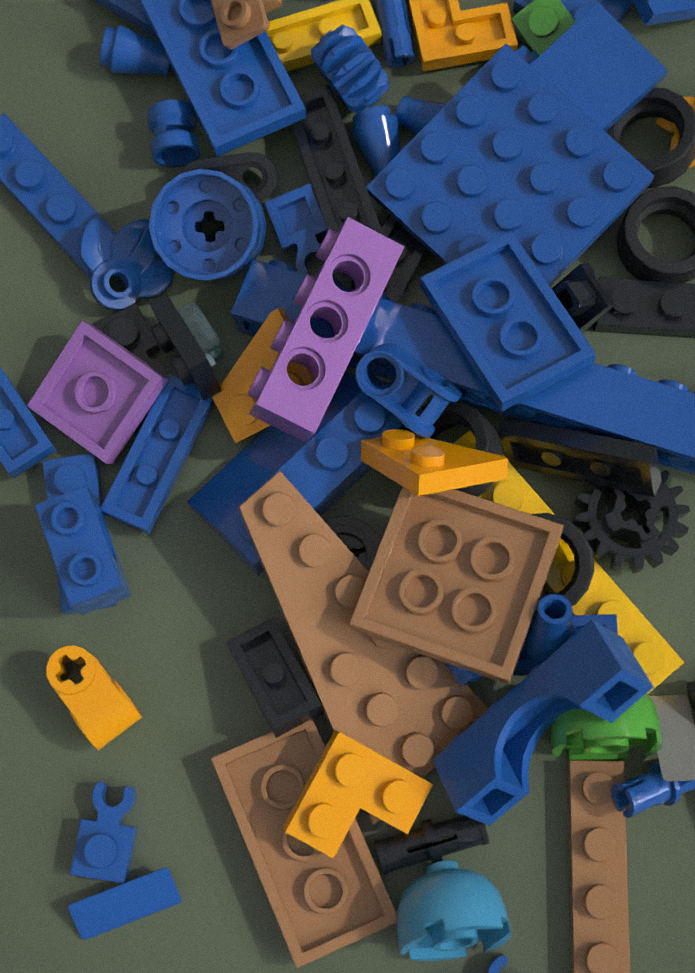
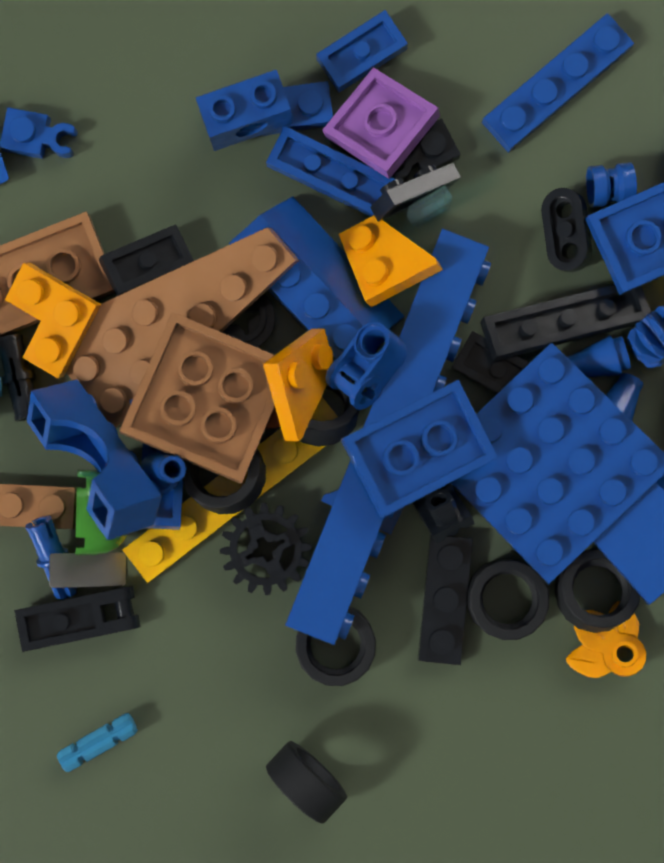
camera: 90 degrees right, 10 degrees up
(97, 702) = (135, 124): light orange piece -> none
(123, 255) = (500, 145): blue plate -> none
(186, 205) = (500, 196): blue wheel -> none
(298, 223) = (526, 287): blue plate -> none
(369, 262) = (349, 281): medium lavender brick -> none
(581, 456) = (310, 508): black plate -> none

